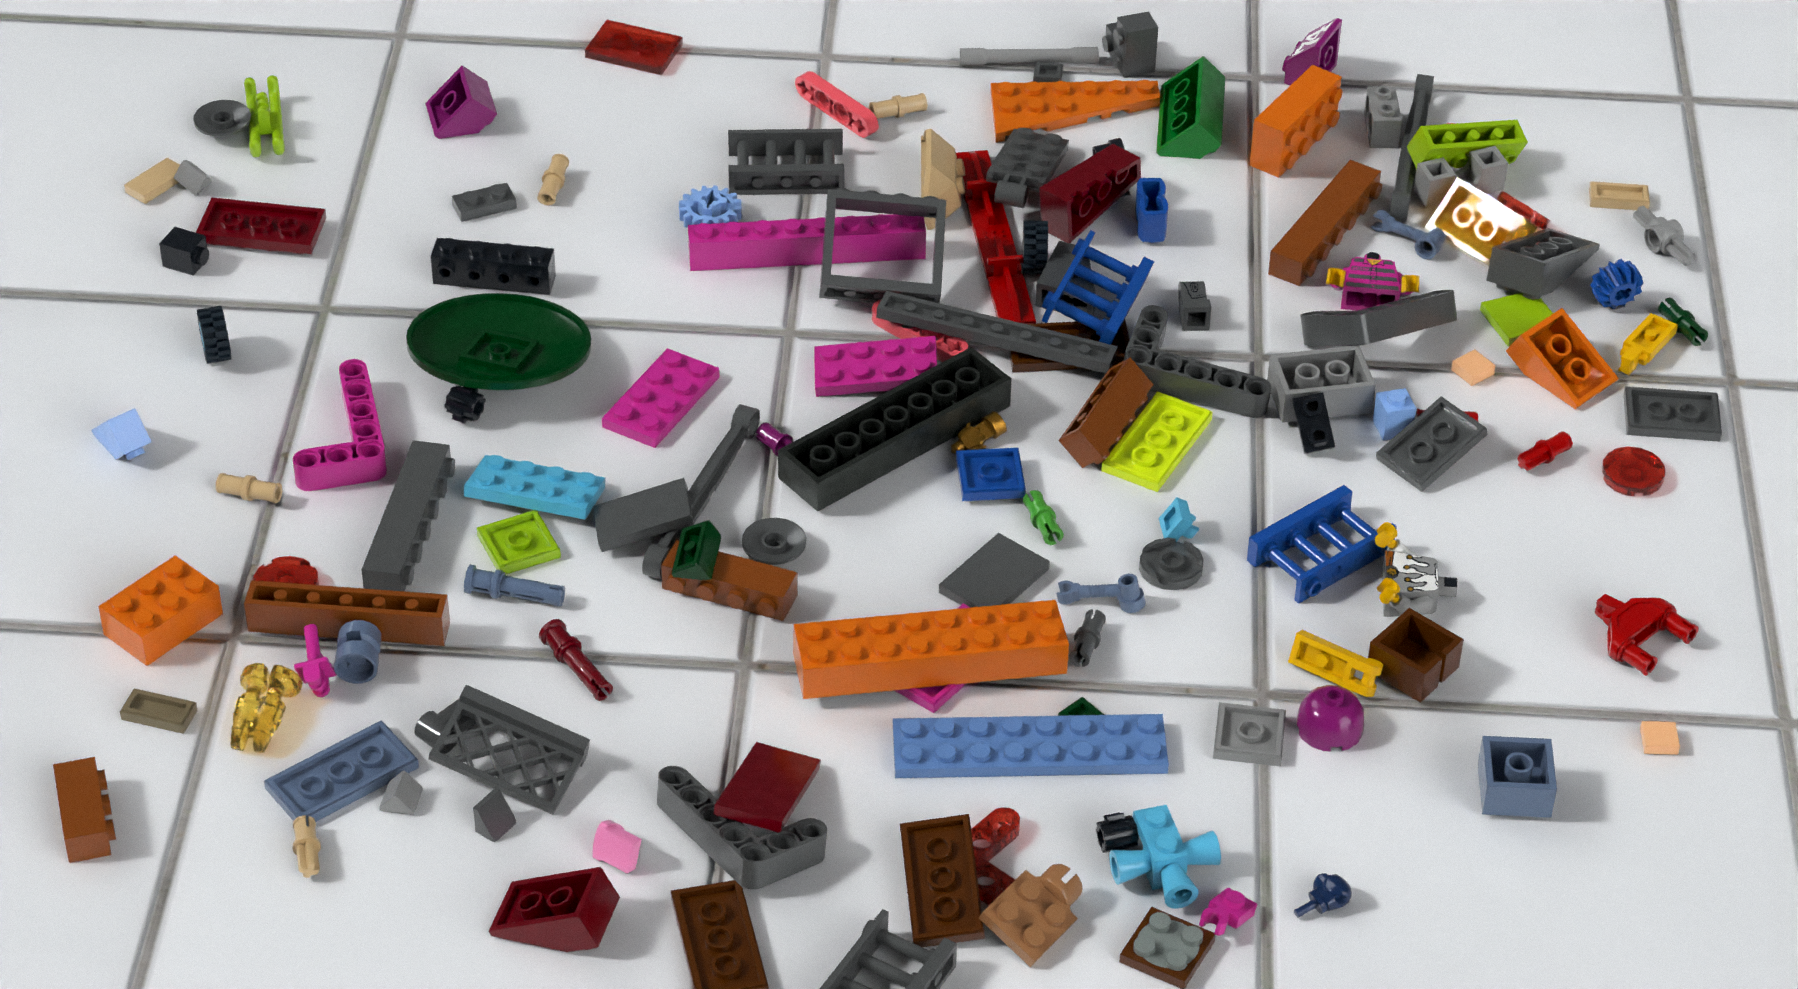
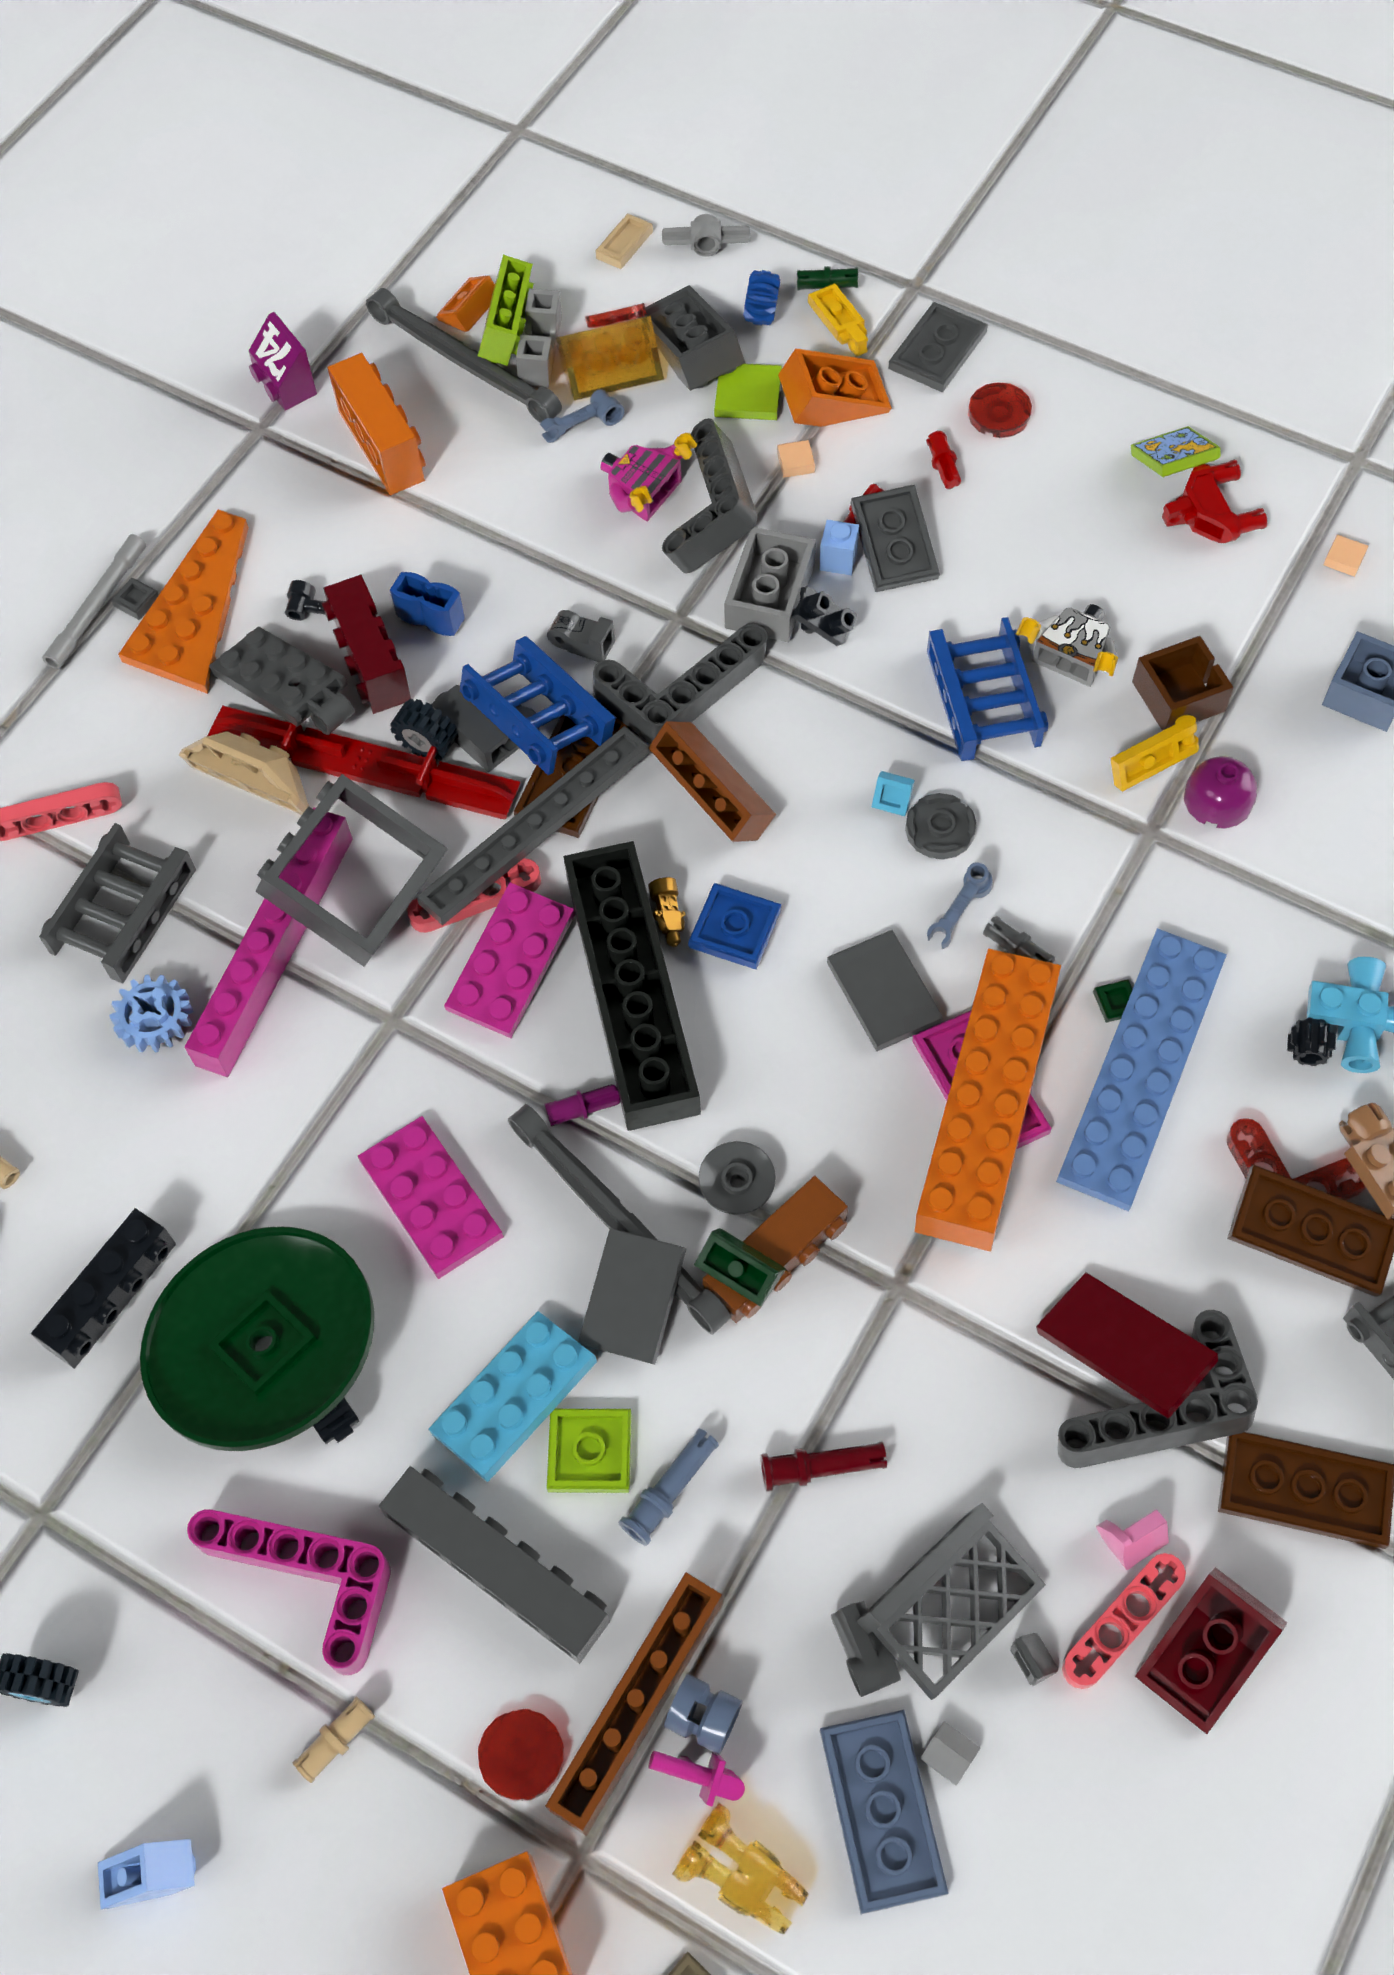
camera: 60 degrees left, 20 degrees up
(306, 846) = (995, 1901): tan axle -> none
(553, 856) = (1127, 1623): none -> coral beam
(899, 106) = (96, 754): tan pin -> none
(1043, 517) = (824, 907): bright green pin -> none
(1132, 44) = (154, 502): dark grey brick -> none
(1157, 441) = (762, 755): neon yellow tile -> none
(1191, 112) = (290, 504): green slope -> none
(1249, 734) = (1205, 868): light grey tile -> none
(1325, 223) = (530, 473): dark orange brick -> none
(1382, 117) = (406, 355): light grey brick -> none
(1674, 586) = (1175, 451): none -> tile

